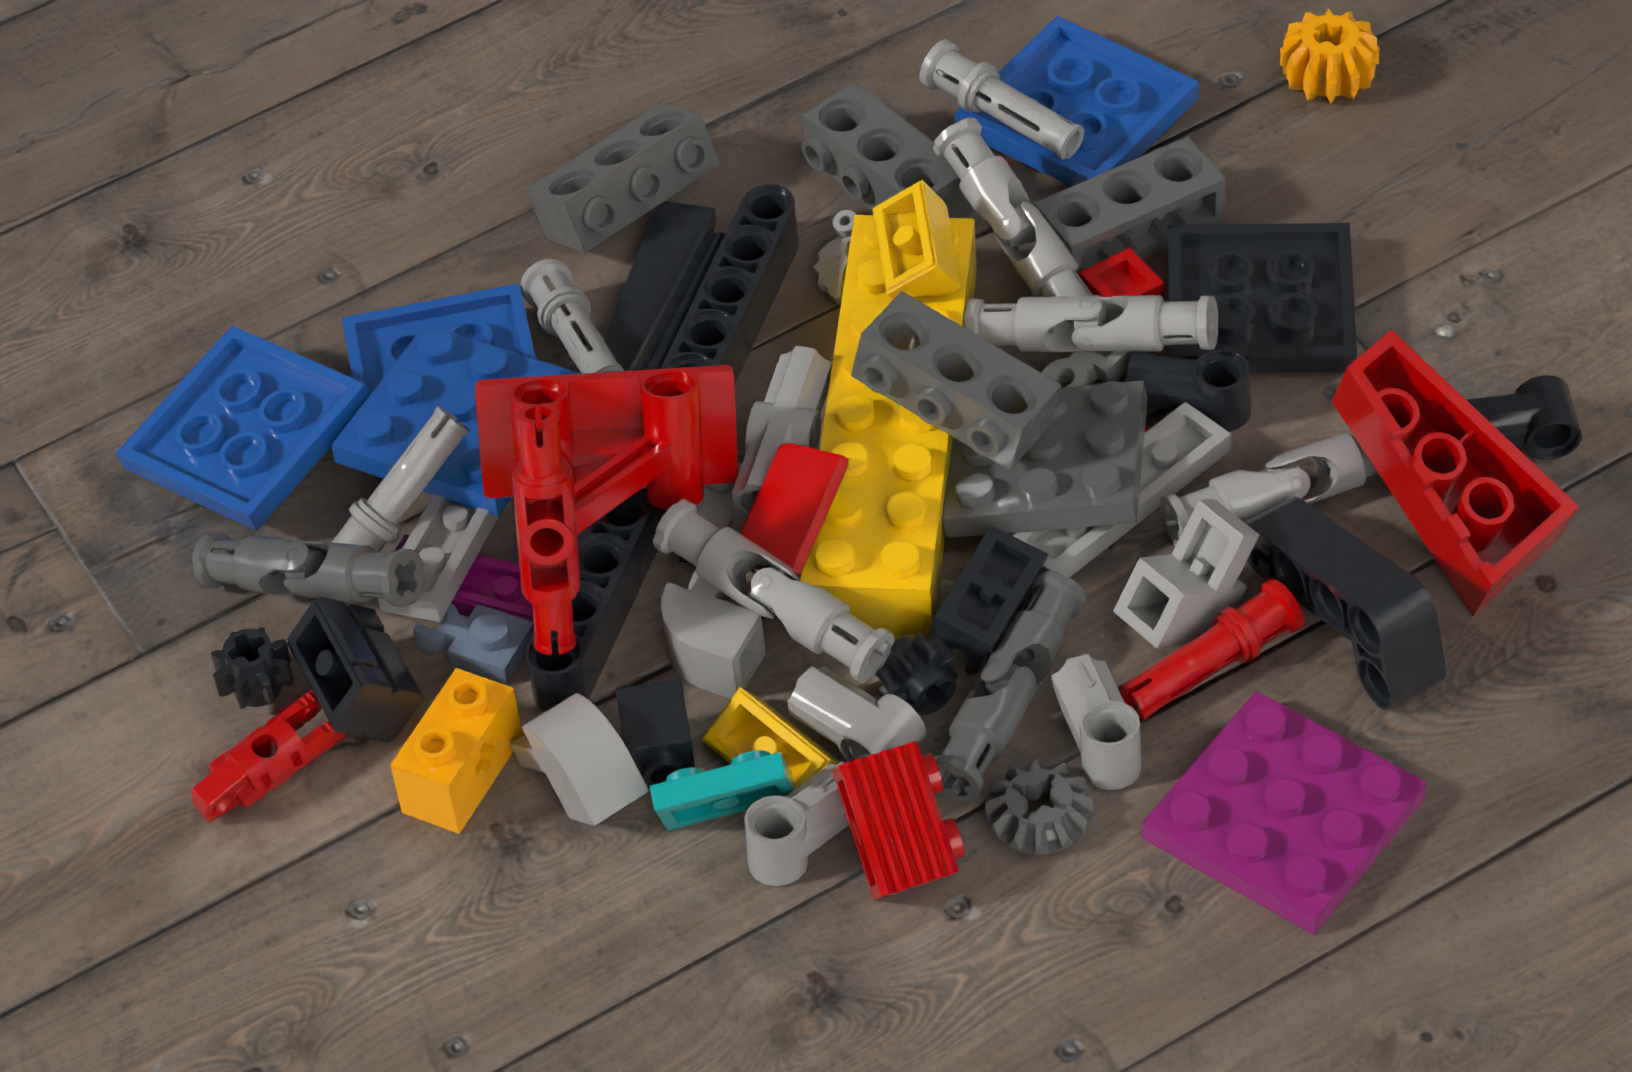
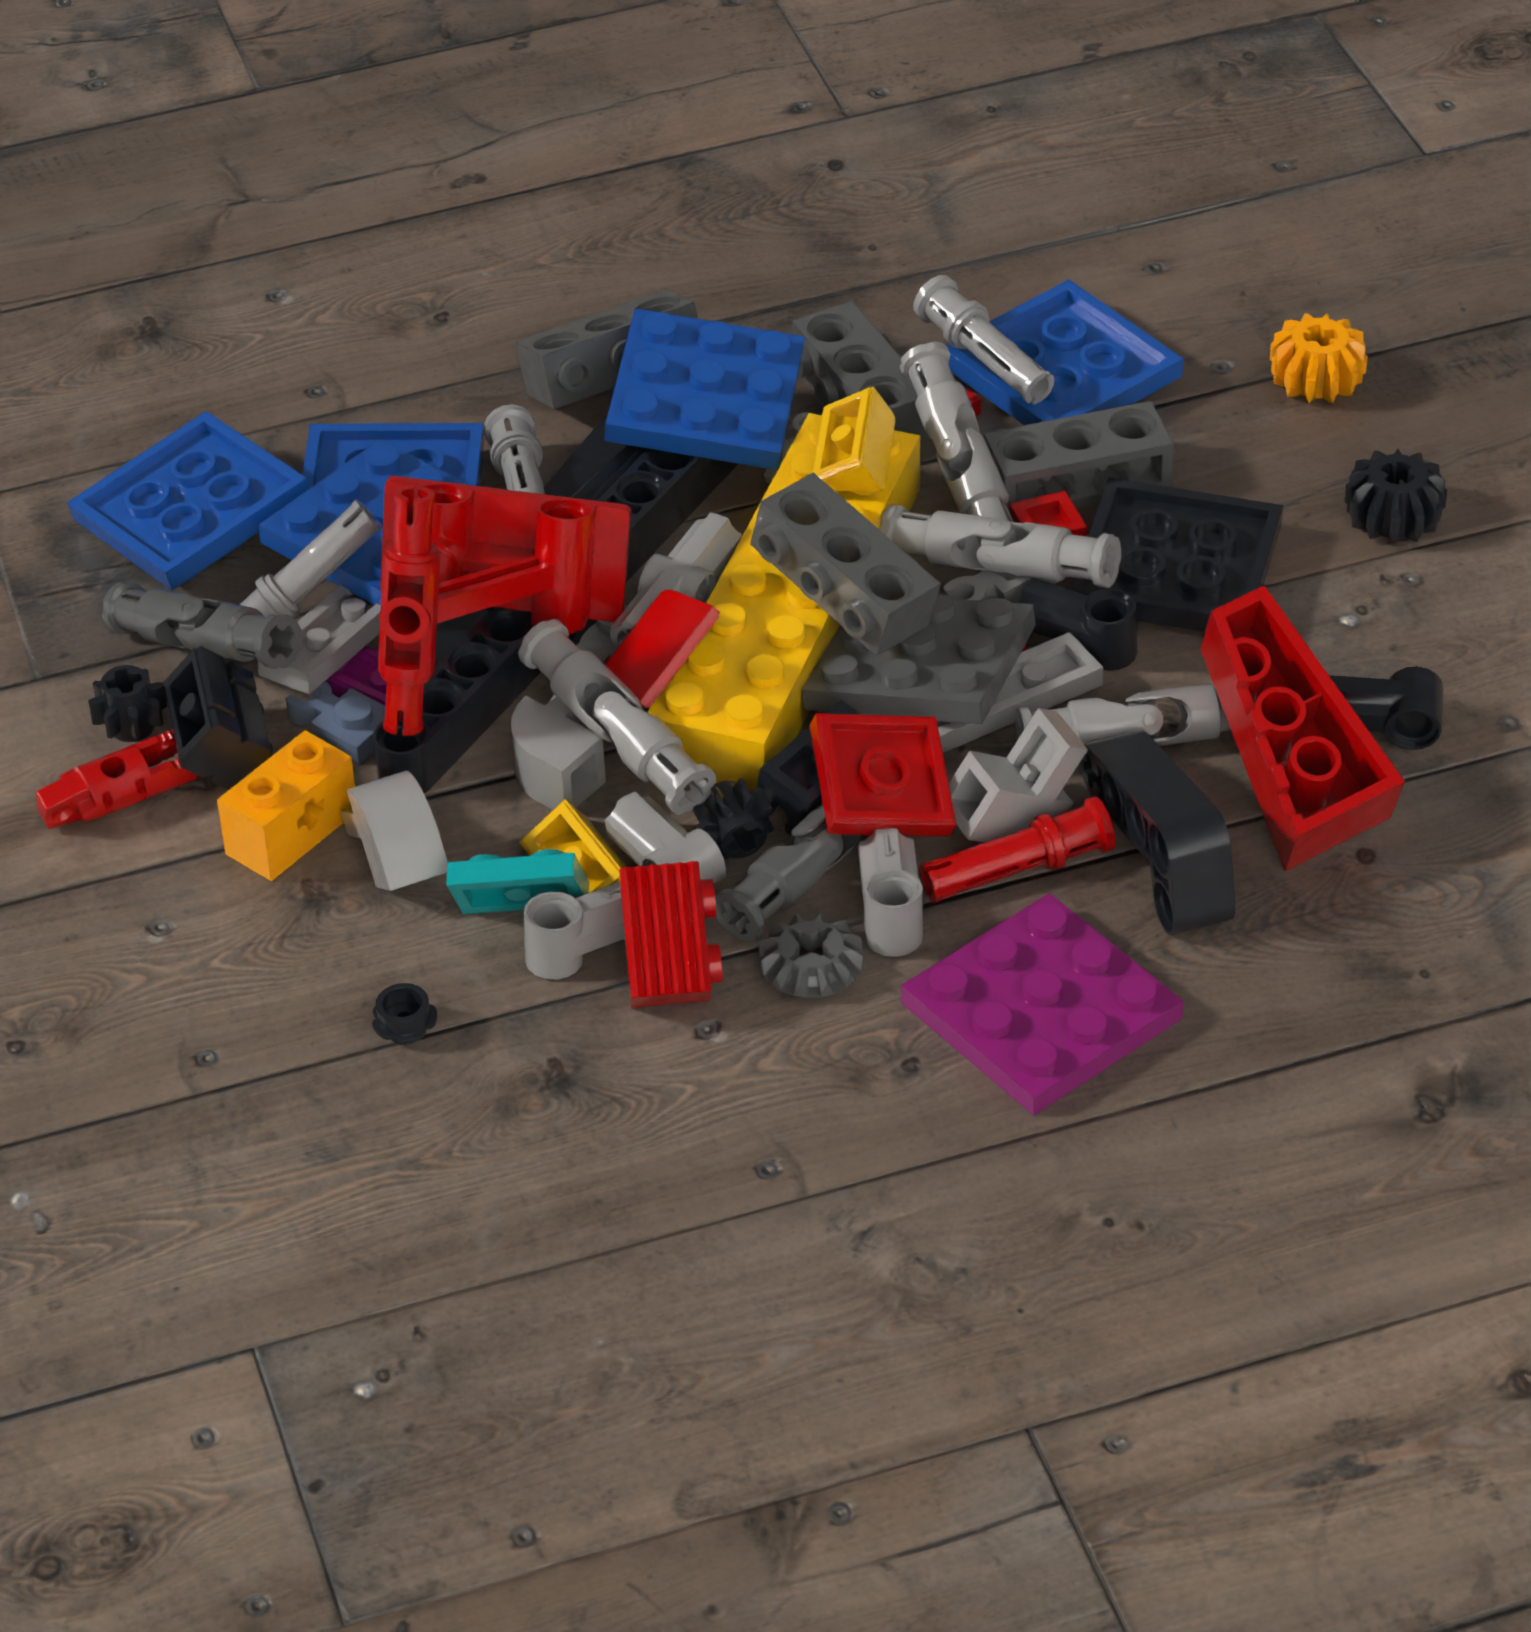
camera: 10 degrees right, 5 degrees down
(644, 945) = (403, 1013): none -> black plate
(656, 728) = (475, 817): black brick -> none
(743, 208) = (705, 389): none -> blue plate
(1057, 599) = (882, 774): none -> red tile
(1454, 191) = (1395, 495): none -> black gear

